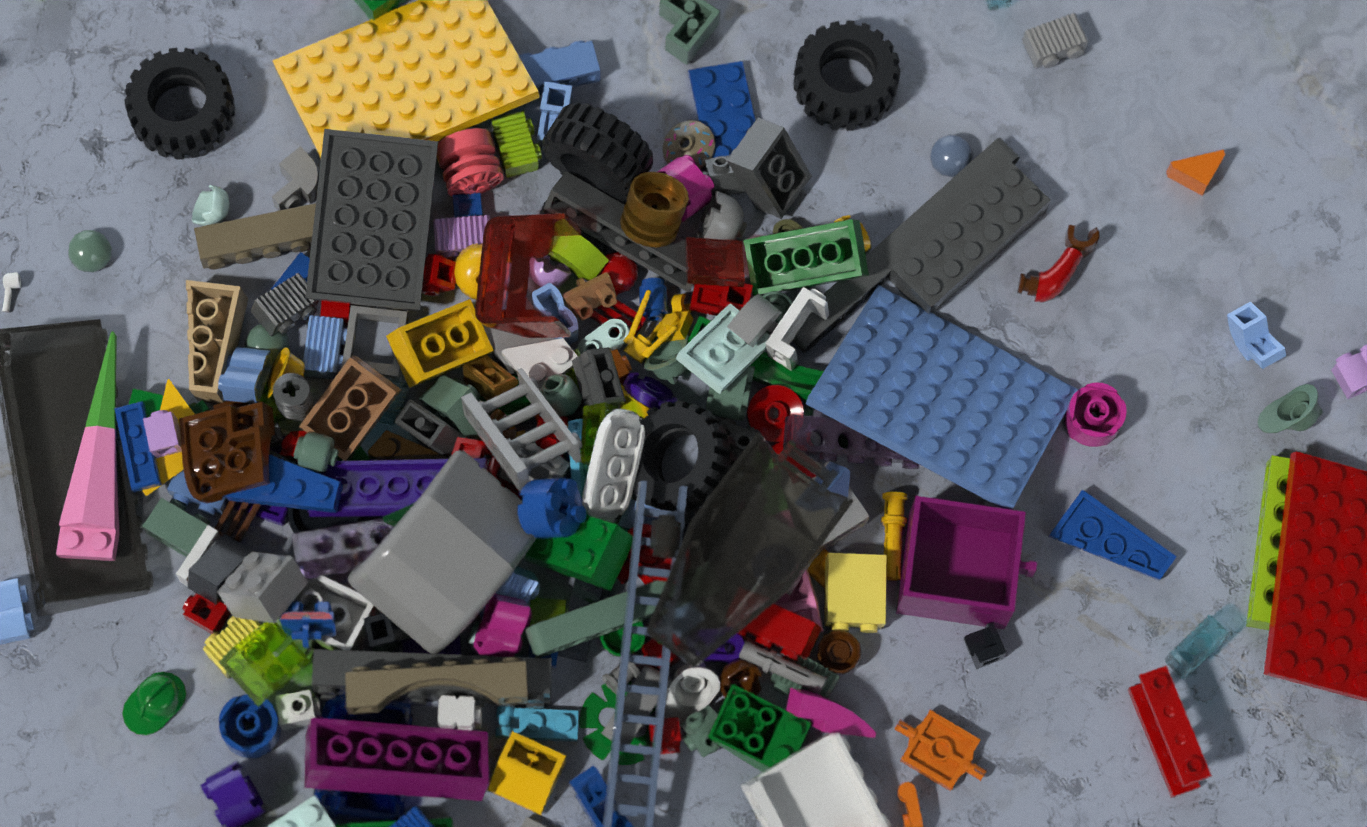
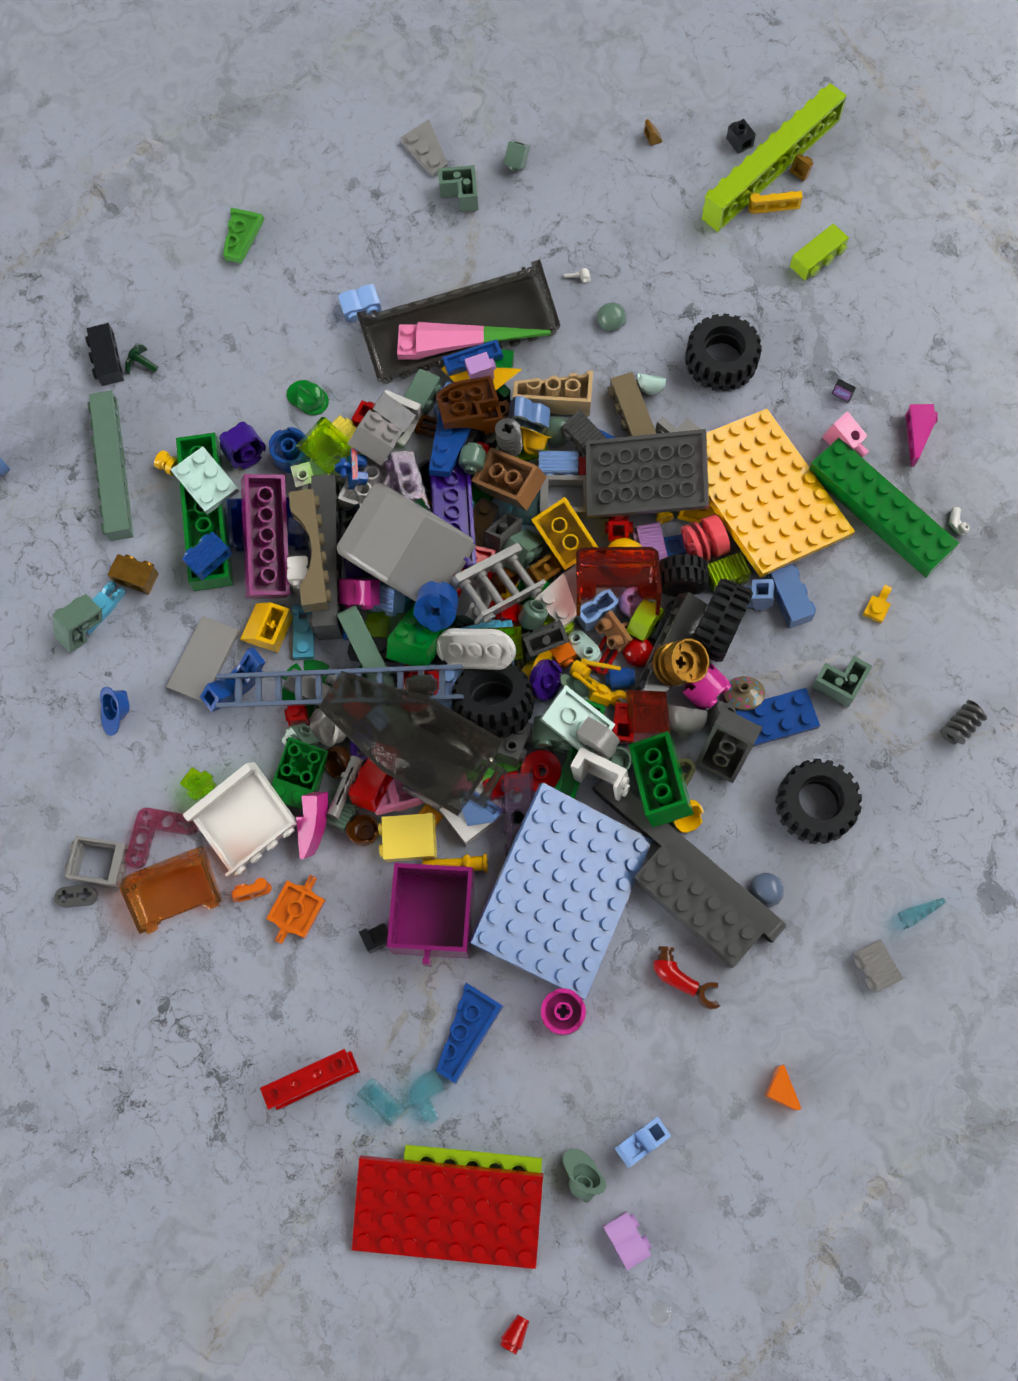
camera: 95 degrees right, 0 degrees up
(521, 189) = (683, 574): none -> black tyre
(1183, 597) = (422, 1090): none -> clear light blue brick

